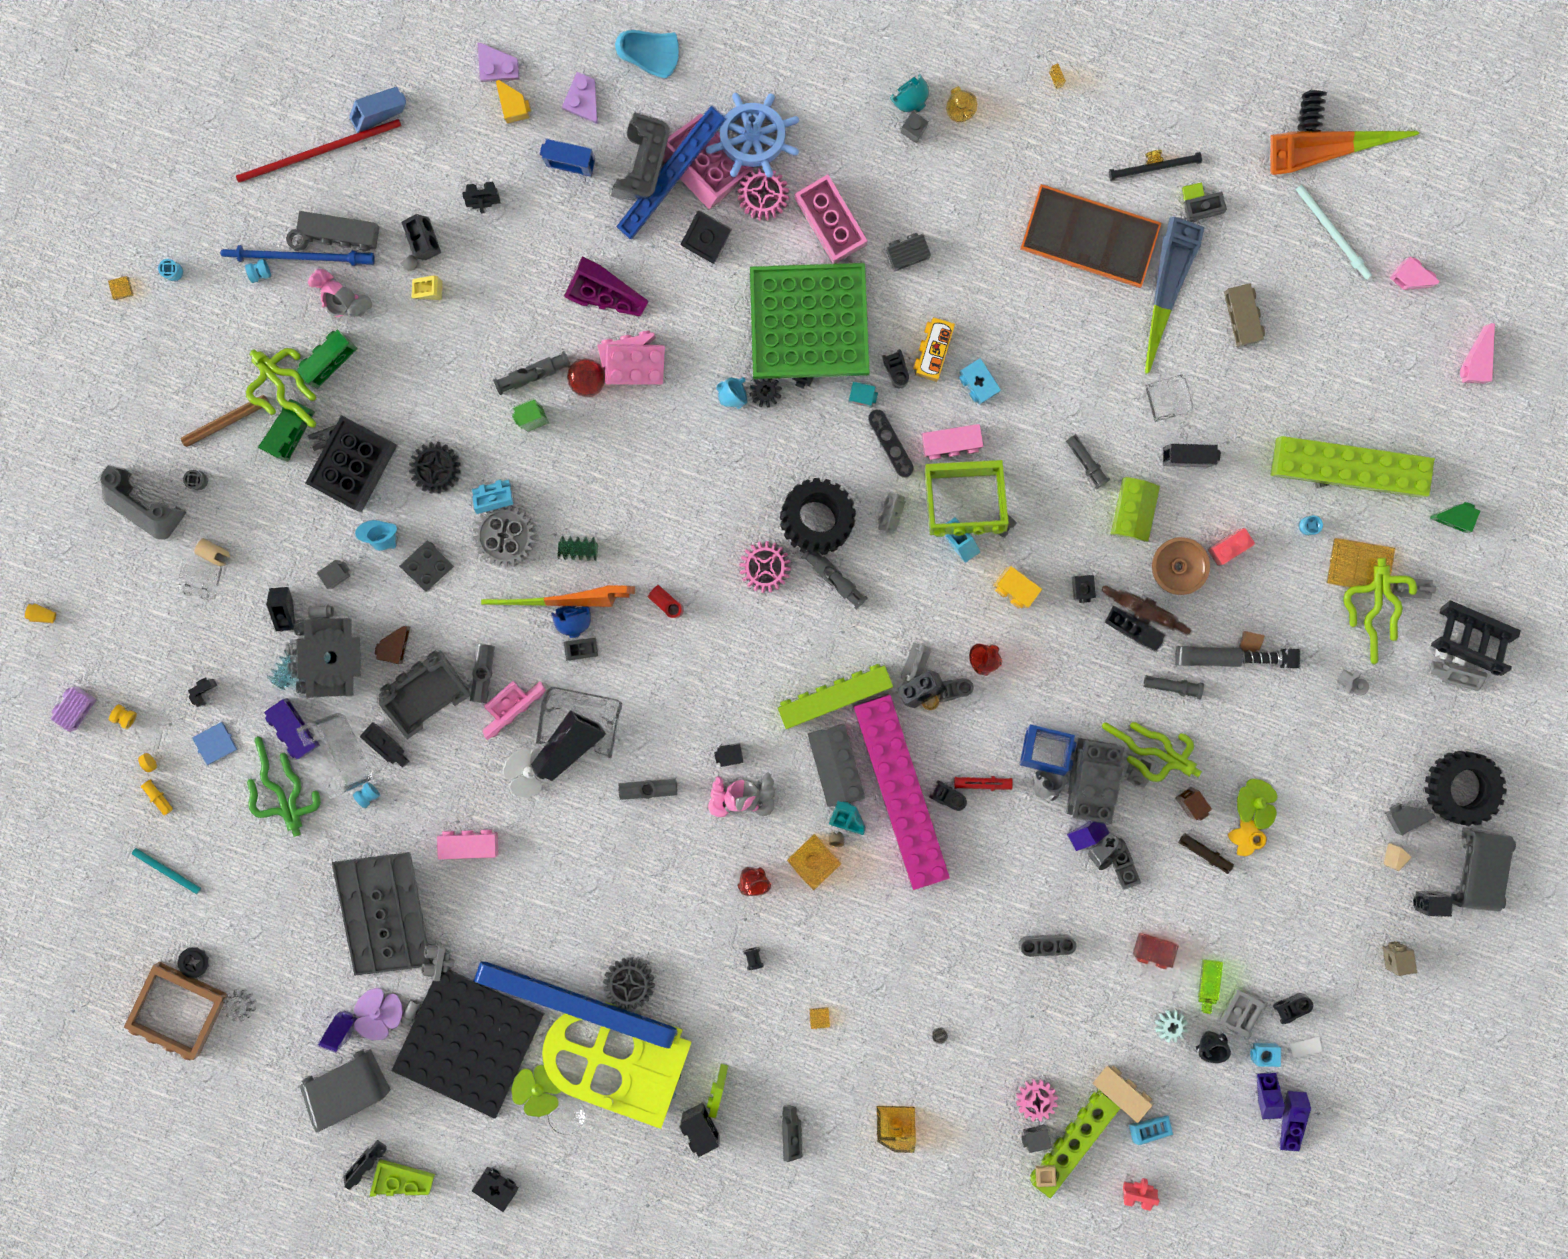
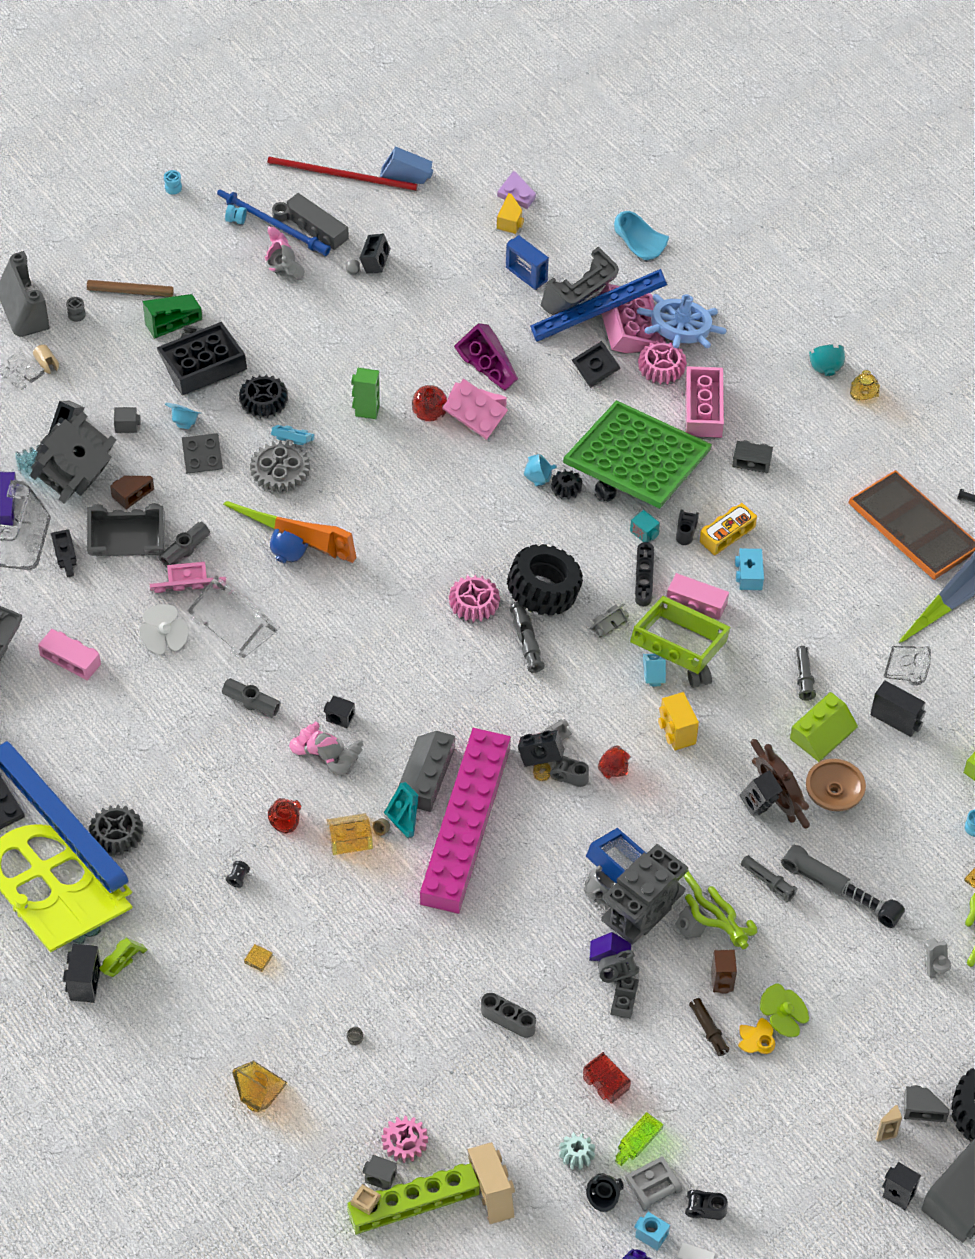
camera: 30 degrees right, 35 degrees down
(120, 288) = (126, 176): clear yellow tile -> none
(267, 368) = (192, 273): lime plant -> none
(326, 359) = (240, 289): green slope -> none
(366, 795) = (20, 574): medium azure wheel -> none
(427, 288) = (354, 288): light yellow slope -> none
(481, 198) = (440, 256): black hips -> none
(525, 375) = (407, 380): dark grey piece -> none
(566, 745) = (212, 623): black slope -> none
(578, 548) = (331, 505): clear green piece -> none
(580, 649) = (275, 570): dark grey slope -> none
(582, 98) = (566, 240): lavender wing -> none
(665, 601) = (373, 579): red piece -> none
(791, 1134) = (158, 1034): dark grey hinge -> none
(834, 697) = (459, 718): lime brick -> none
(914, 127) = (816, 381): dark grey brick -> none
(947, 796) = (503, 846): black piece -> none
(1006, 783) = (550, 860): red pin -> none
(1057, 76) = (957, 408): clear yellow tile -> none
(1077, 581) = (740, 752): black brick -> none
(1144, 1138) = (484, 1238): medium azure slope -> none
(1231, 546) = (892, 798): coral brick -> none
(1251, 641) = (865, 881): medium nougat slope -> none
(1399, 959) = (837, 1215): dark tan brick -> none

